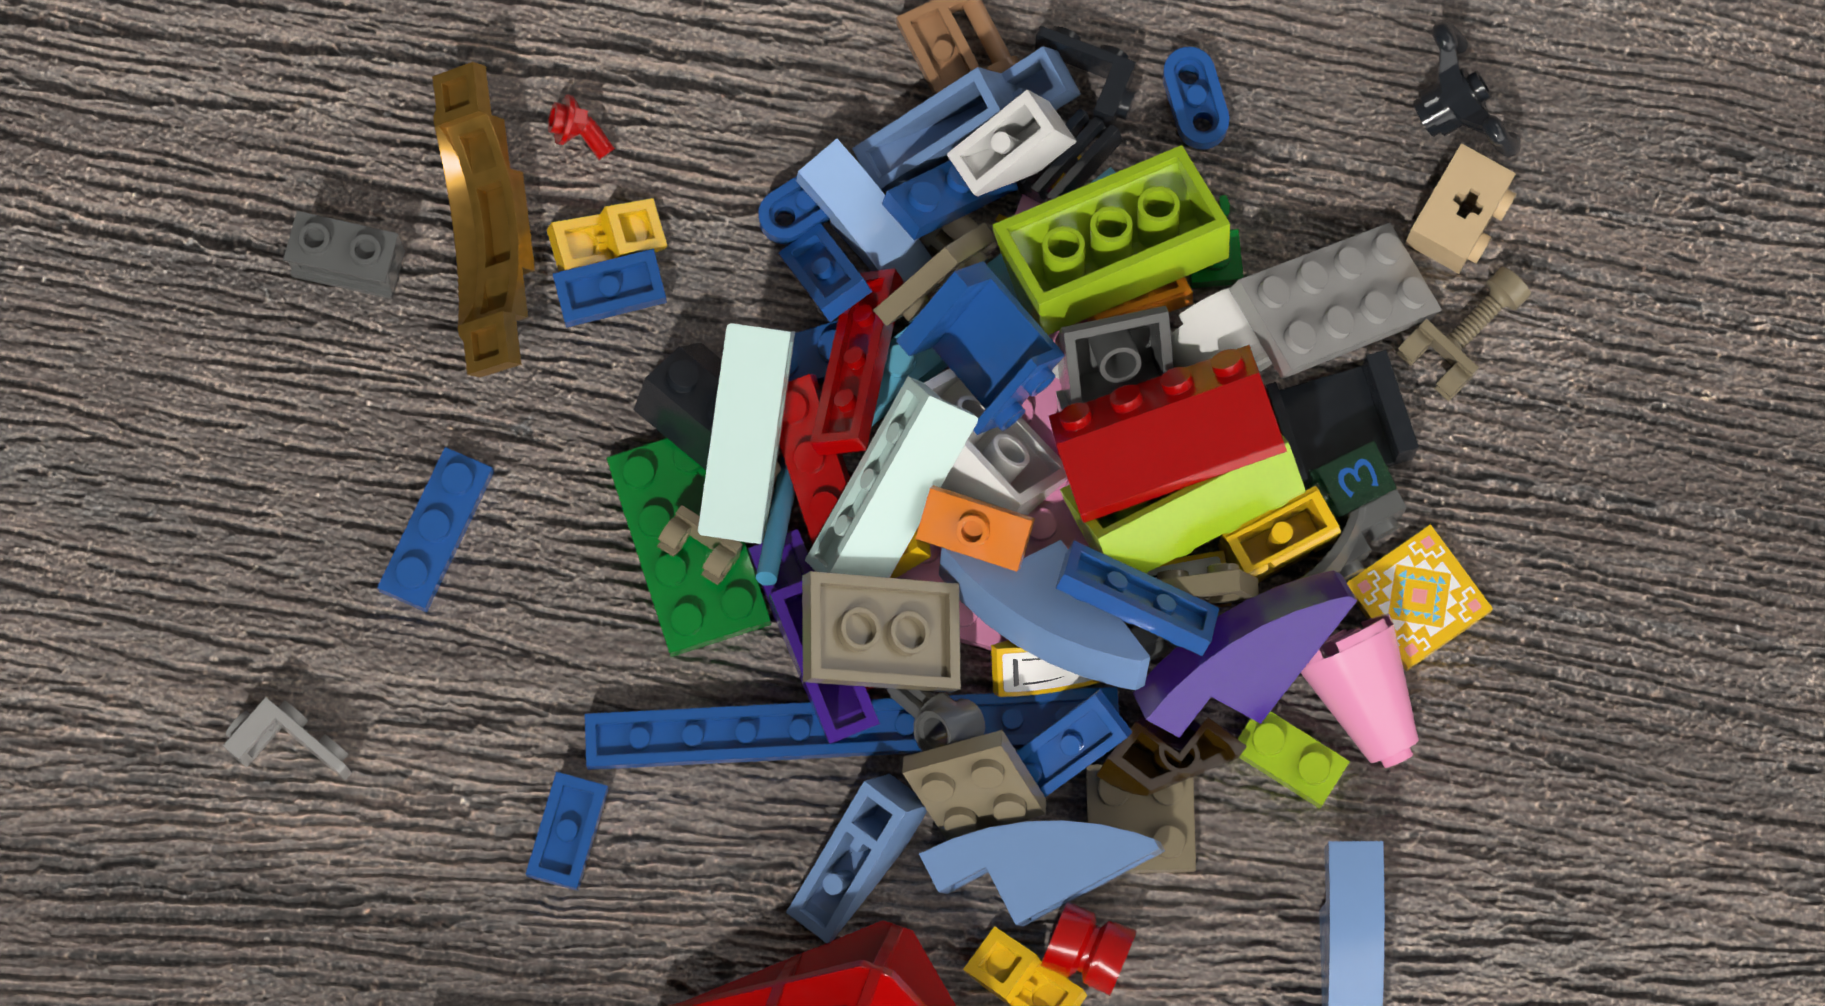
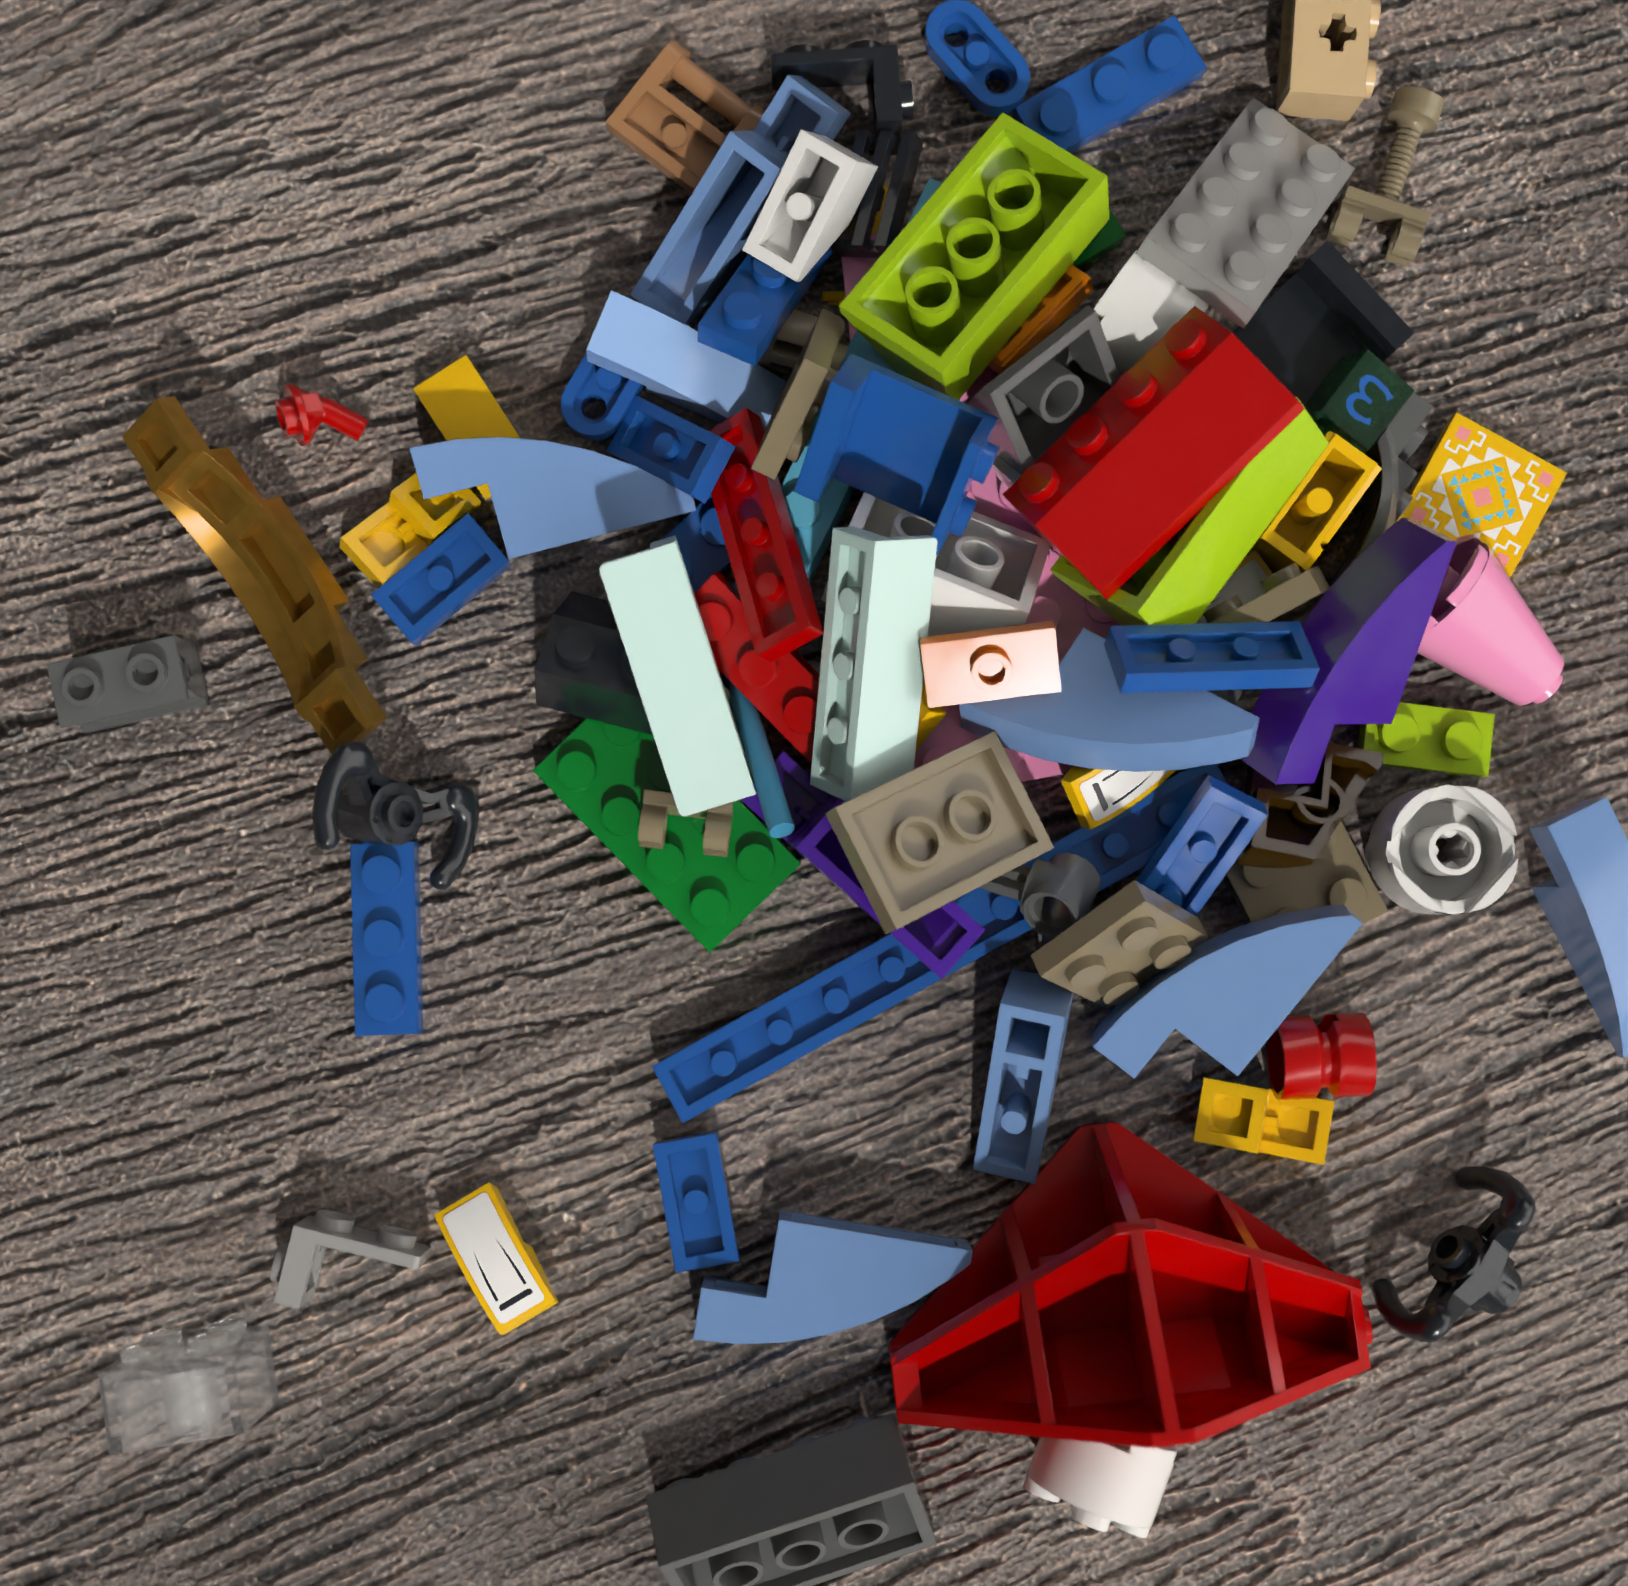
camera: 30 degrees left, 10 degrees up
(131, 775) = (188, 1386): none -> clear brick
(397, 801) = (495, 1258): none -> white slope
(488, 434) = (389, 811): none -> black piece
(634, 935) = (827, 1280): none -> medium blue slope
(690, 190) = (463, 406): none -> yellow slope
(720, 259) = (547, 489): none -> medium blue slope
(1268, 811) = (1477, 850): none -> white brick
(1285, 168) = (1114, 87): none -> blue plate

